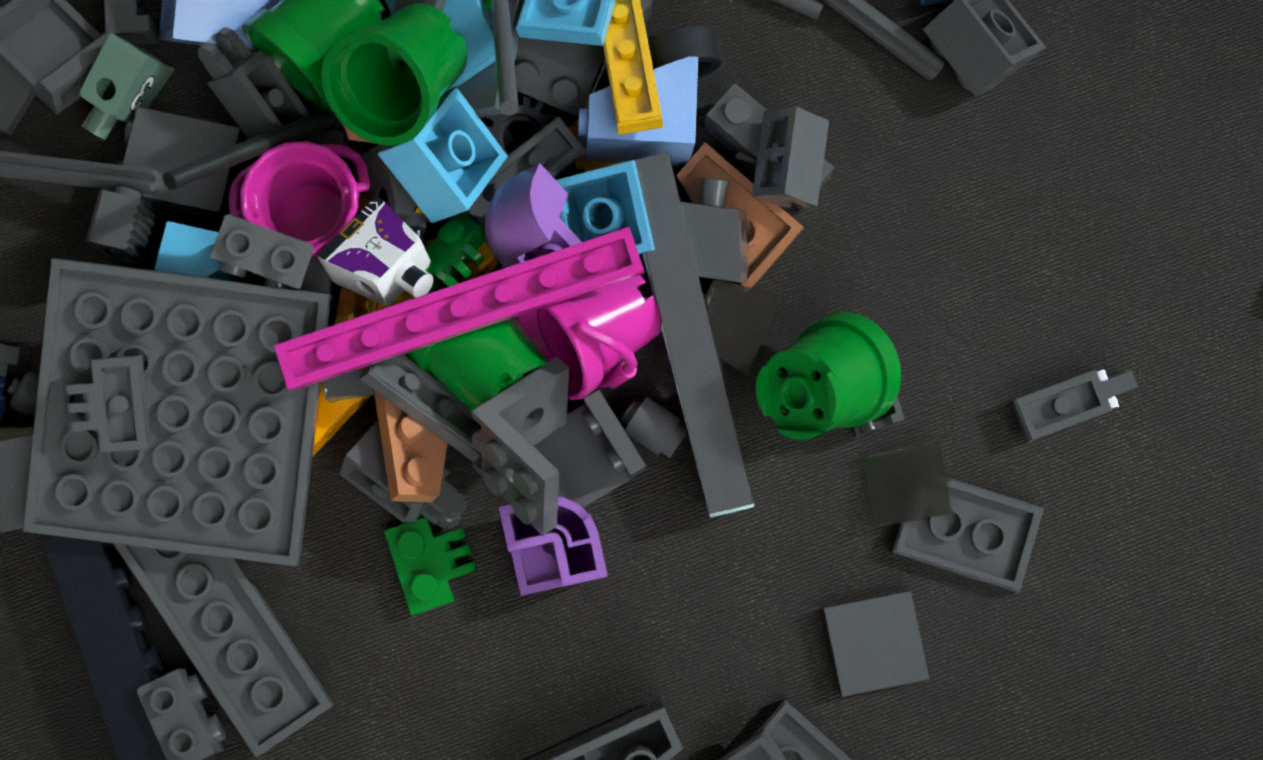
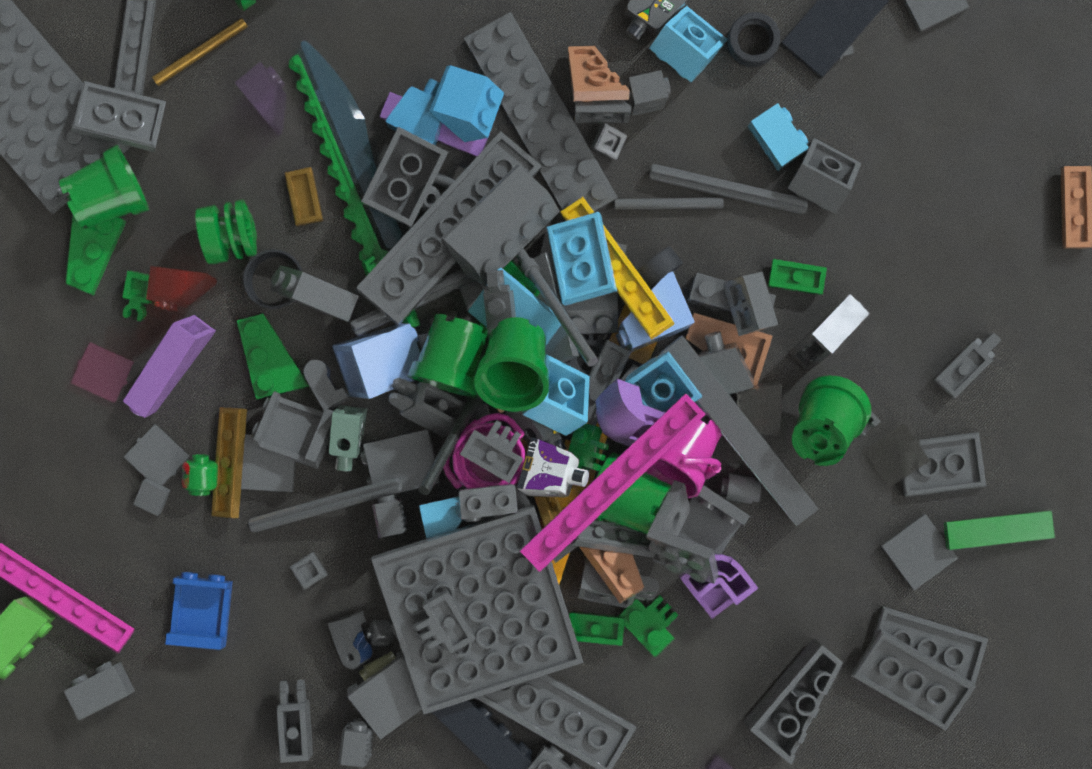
camera: 20 degrees left, 5 degrees up
(309, 185) = (494, 452): none -> dark grey hinge
(346, 532) = (598, 628): none -> green plate
(879, 162) = (797, 277): none -> green plate
(888, 261) = (829, 333): none -> slope
(1009, 665) = (998, 530): none -> tile

